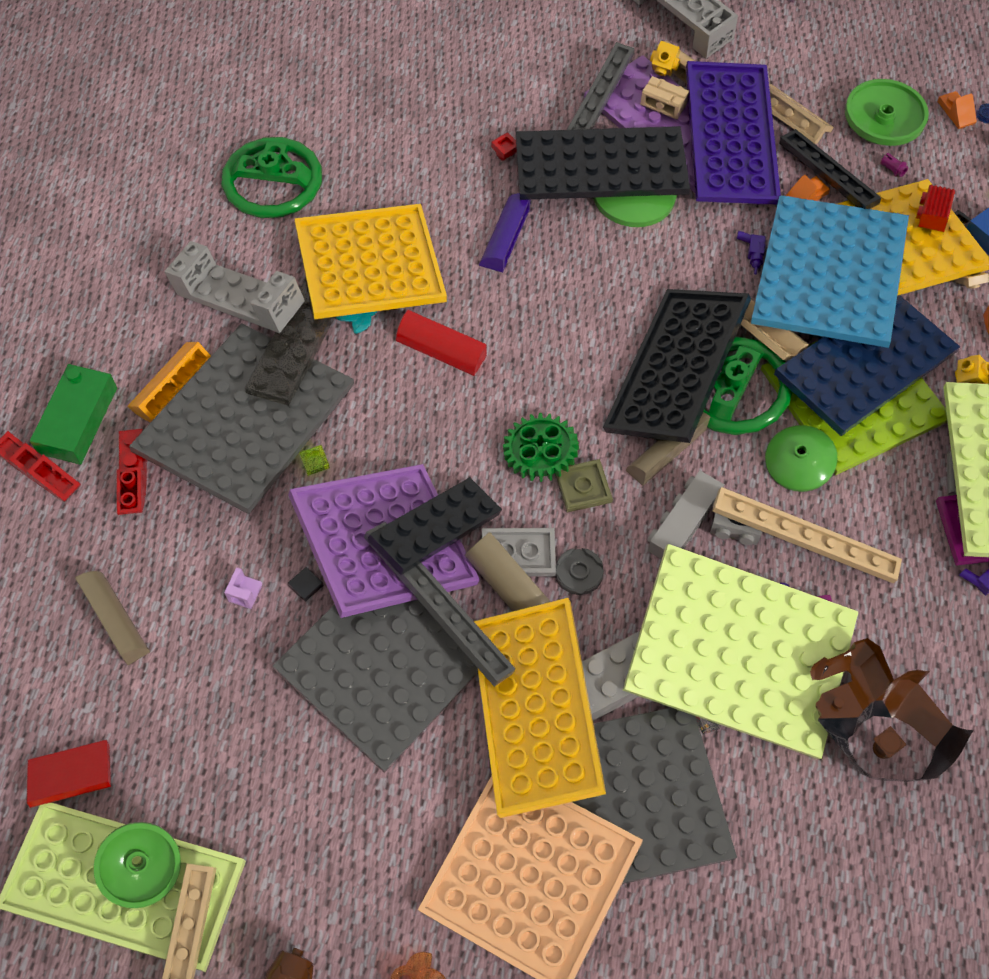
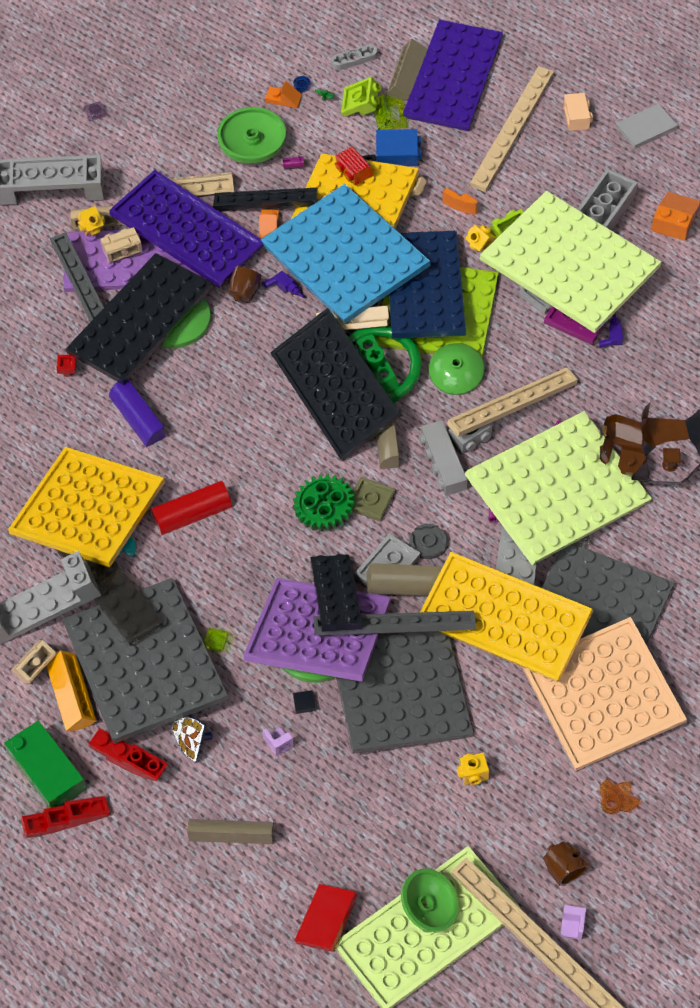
camera: 50 degrees left, 5 degrees down
(174, 330) = (33, 661): none -> tan brick
(192, 510) = (189, 736): none -> shield
(345, 805) = (473, 769): none -> yellow brick
(718, 216) = (244, 284): none -> reddish brown helmet

